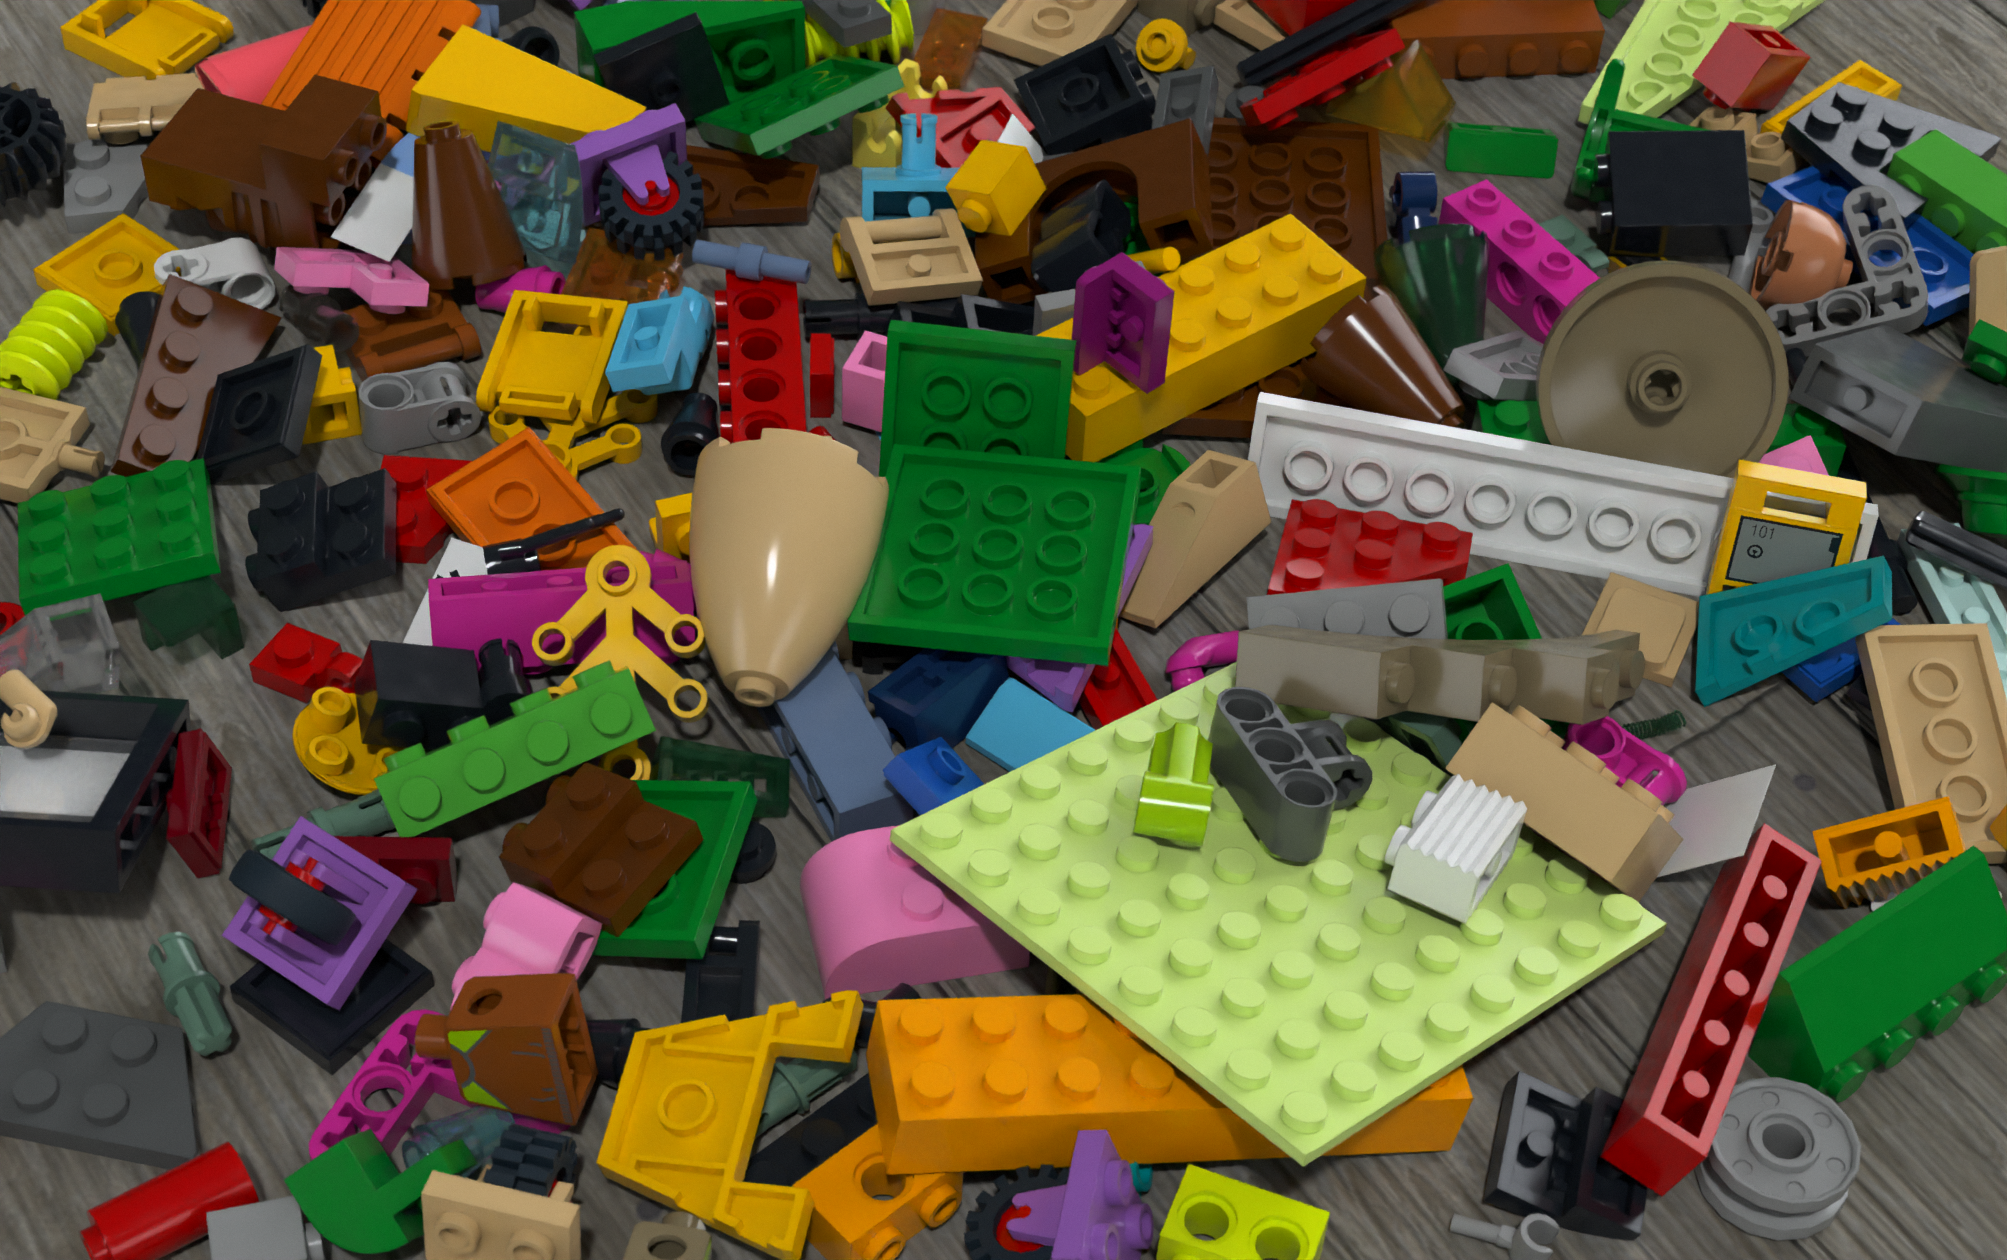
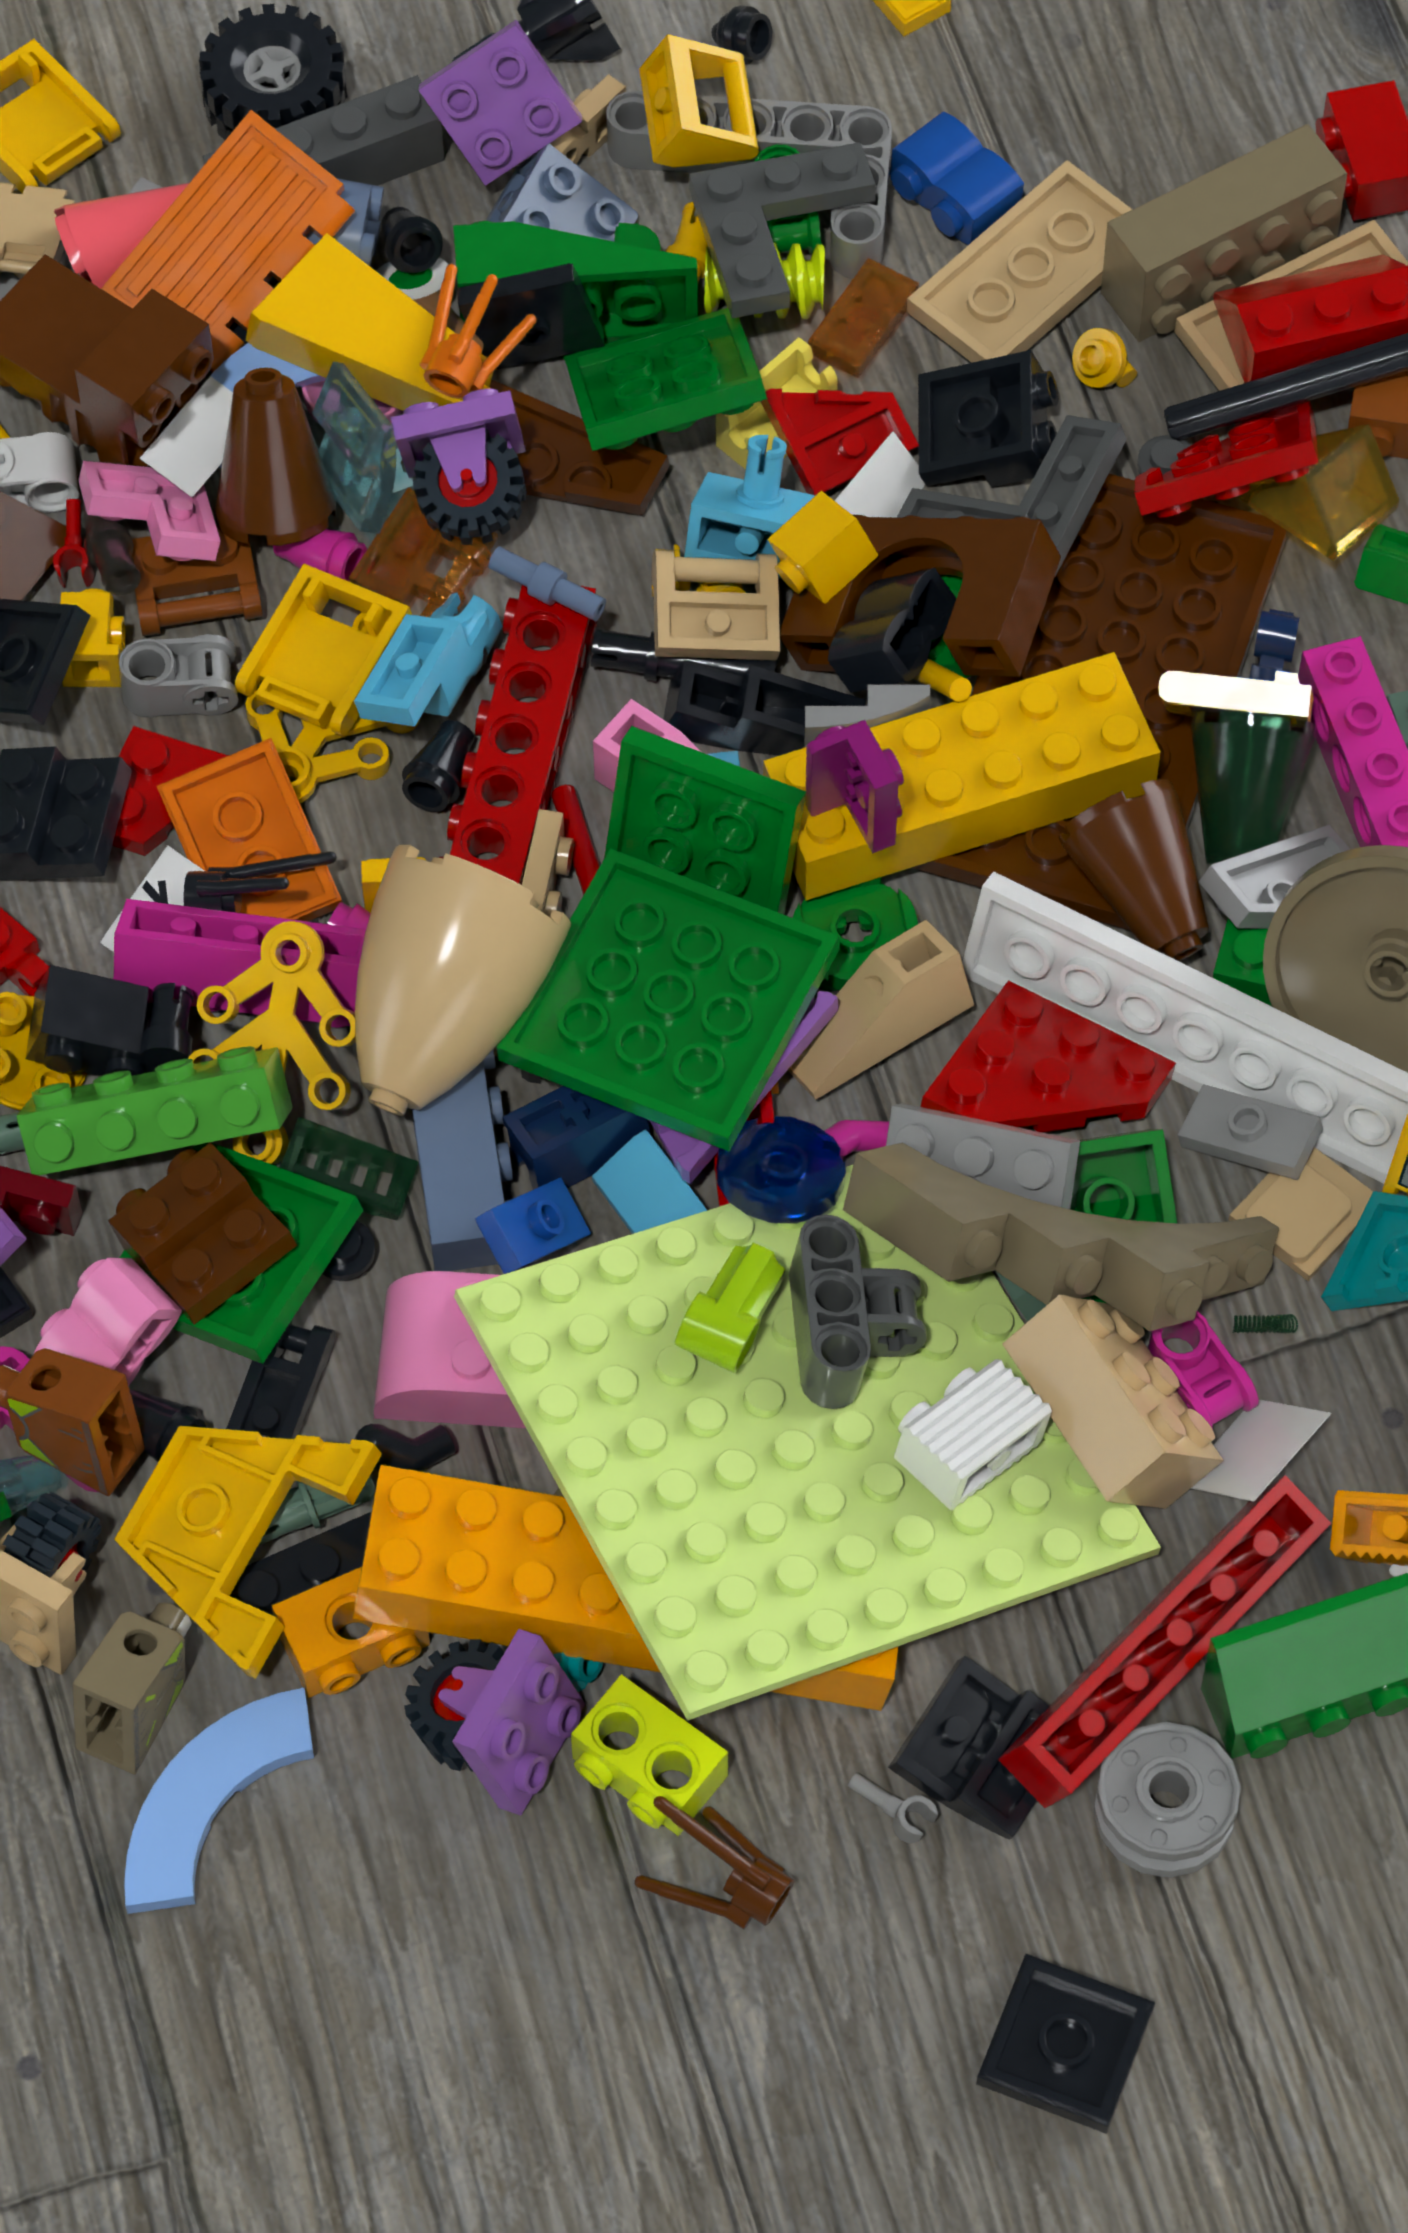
camera: 20 degrees right, 15 degrees up
(282, 334) = (72, 552): none -> red hand
(615, 96) = (455, 363): none -> orange plant
(821, 375) = (586, 724): red tile -> none
(1159, 679) = (782, 1170): none -> clear blue tile
(1381, 219) = (1194, 691): none -> container
(1571, 570) = (1250, 1131): none -> light grey plate

